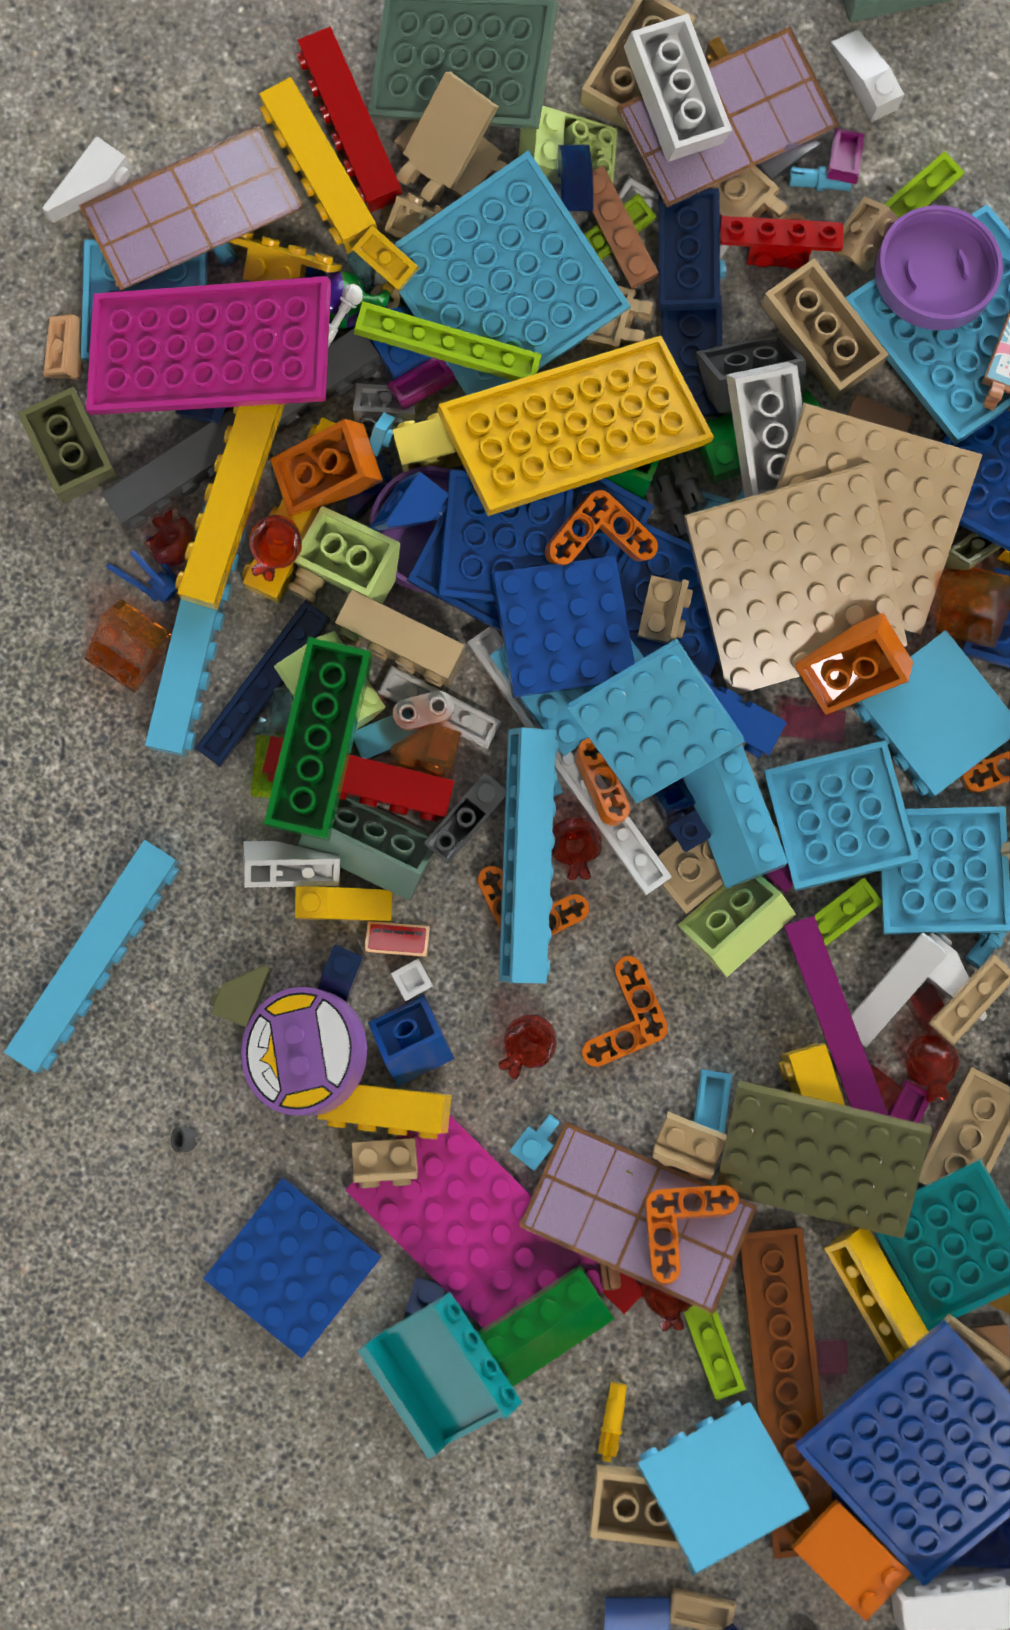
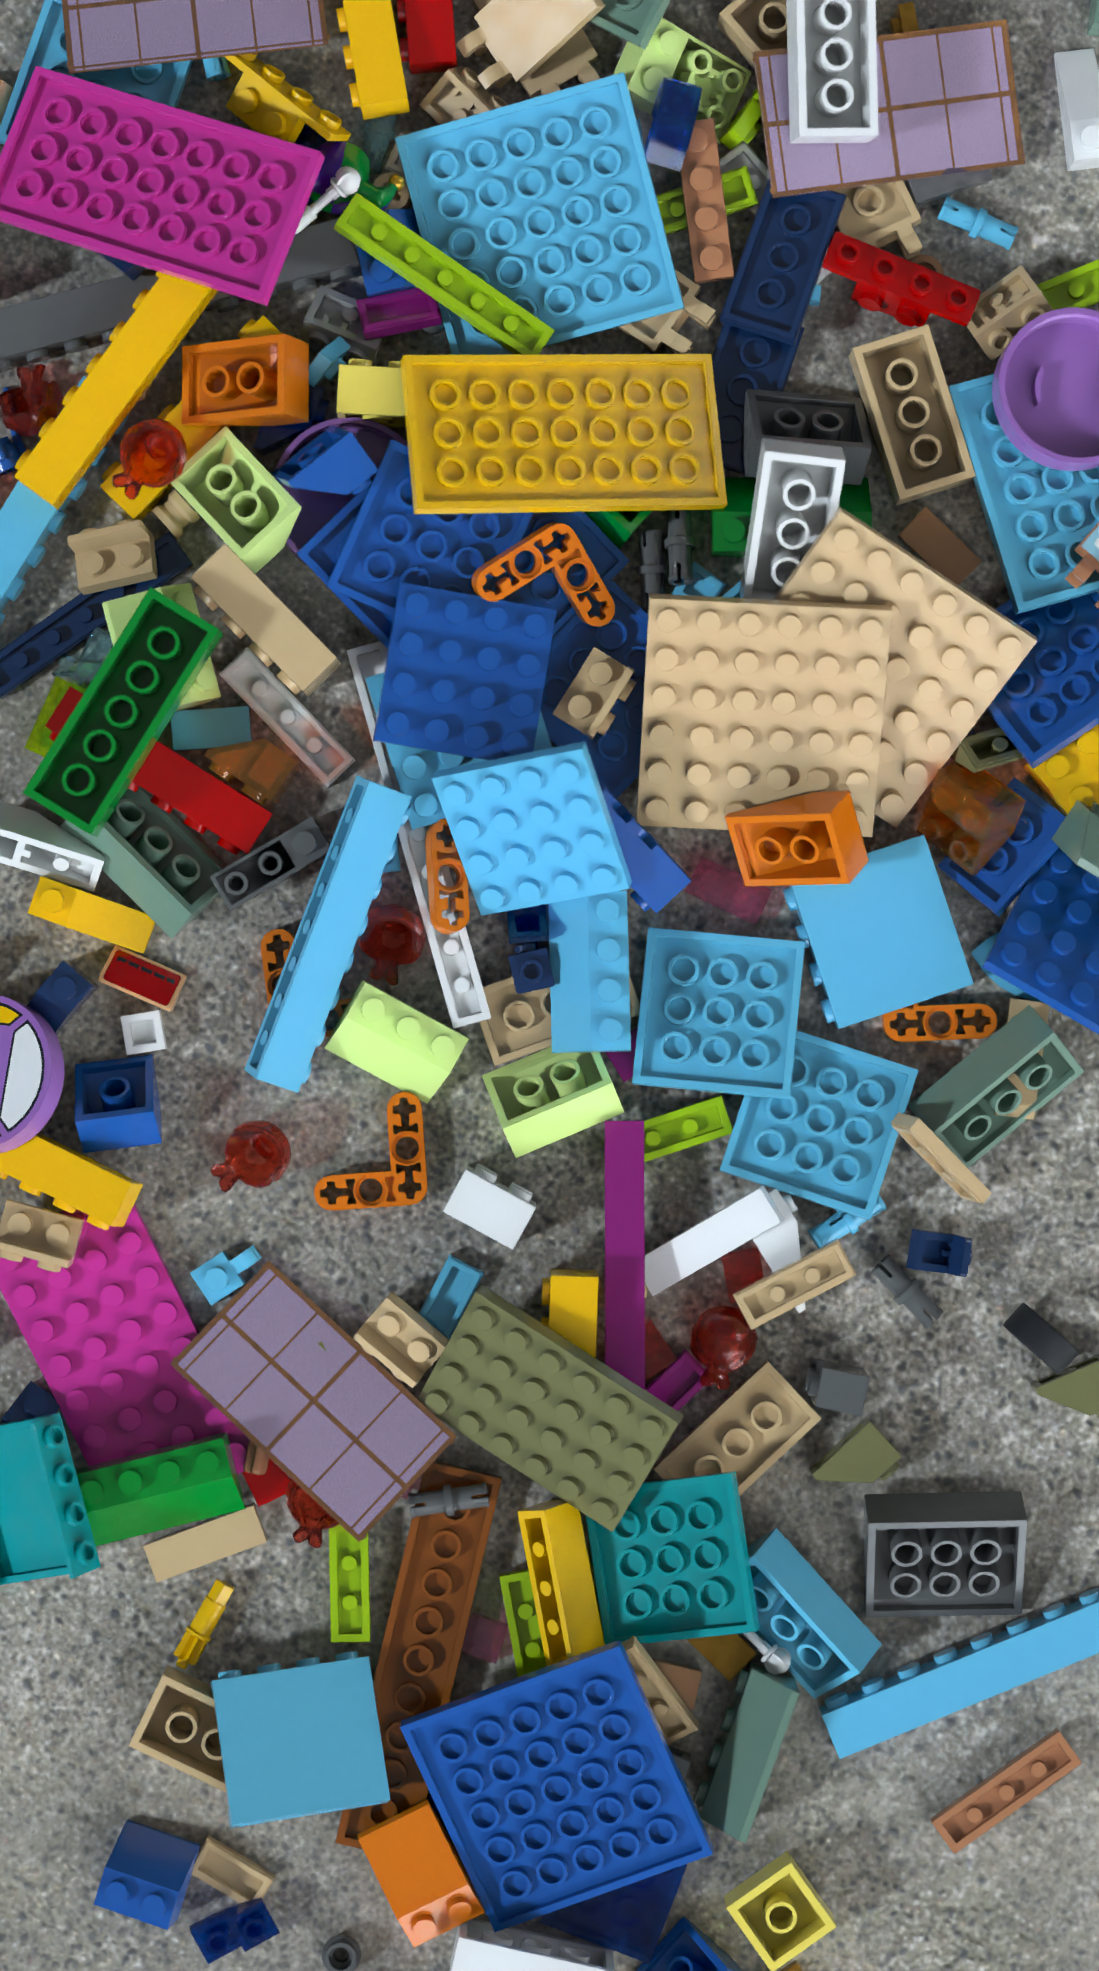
camera: 25 degrees right, 5 degrees up
(270, 631) = (114, 556): none -> tan bracket
(385, 258) = (405, 146): yellow plate -> none
(423, 711) = (265, 714): white plate -> none
(592, 1357) = (205, 1543): none -> tan tile
(605, 920) = (396, 1041): none -> yellowish green slope
(626, 163) = (744, 124): none -> lime plate
(668, 1221) = (345, 1416): orange beam -> none
(722, 1020) = (491, 1205): none -> white brick
(768, 1257) = (448, 1500): none -> dark grey pin
(845, 156) = (1017, 206): magenta tile -> none
(858, 1334) = (522, 1621): none -> lime plate

